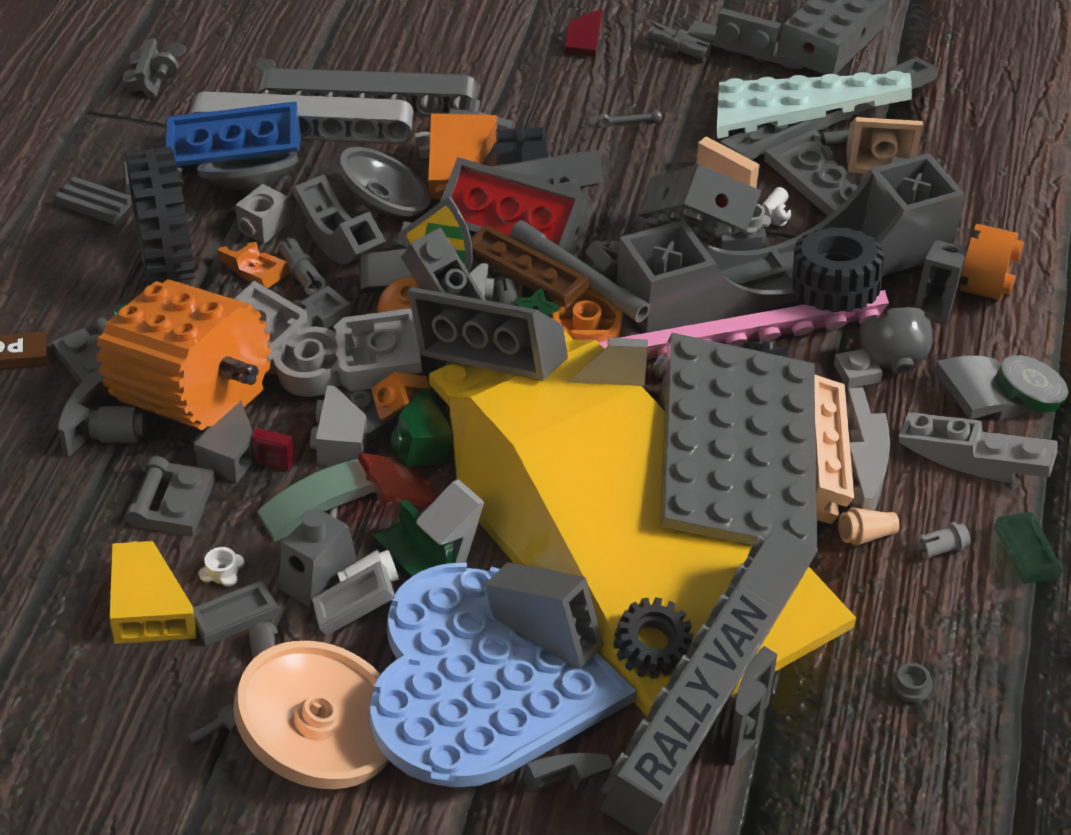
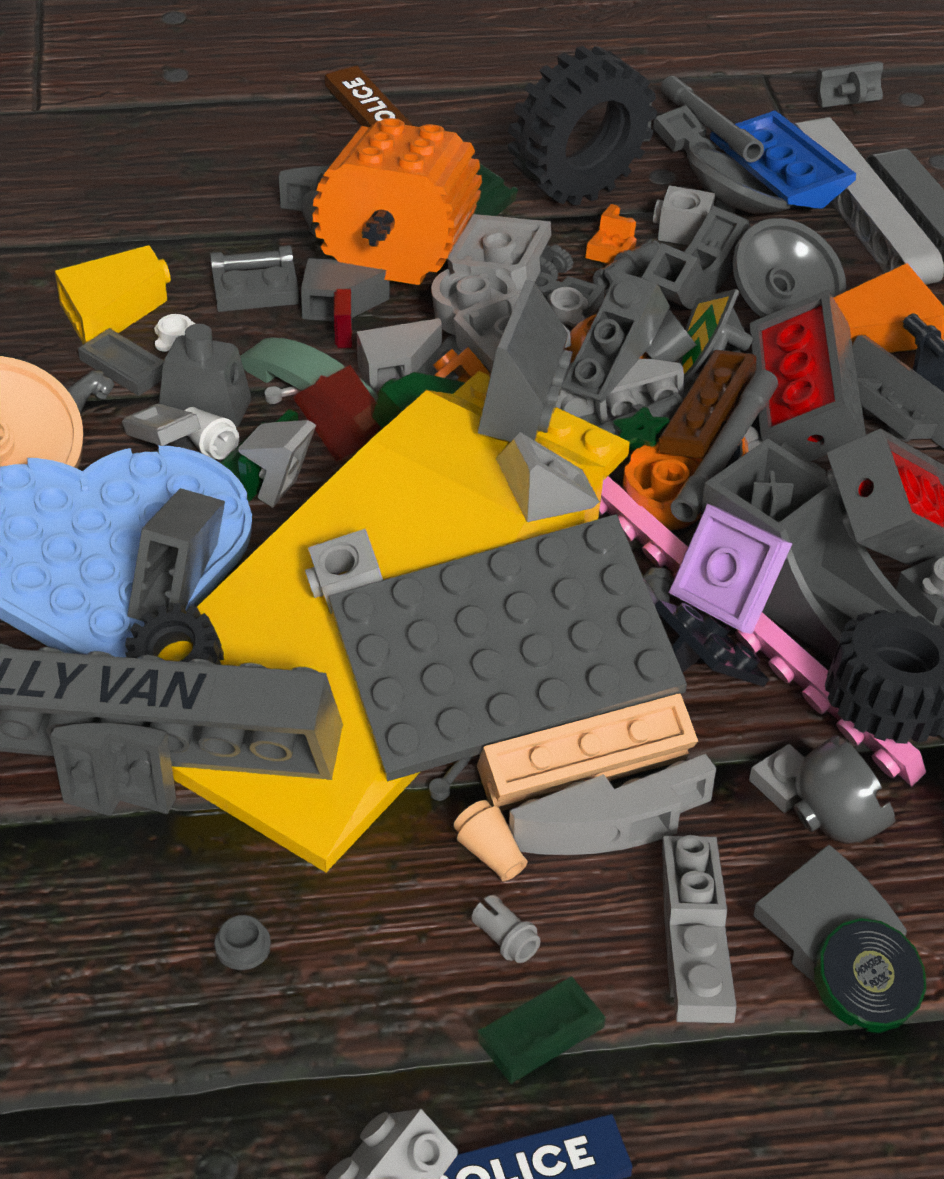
camera: 70 degrees right, 0 degrees up
(205, 146) = (738, 139): none -> dark grey piece
(345, 307) = (568, 305): none -> light grey plate
(646, 487) = (345, 553): none -> light grey brick
(710, 306) = (730, 568): none -> lavender tile

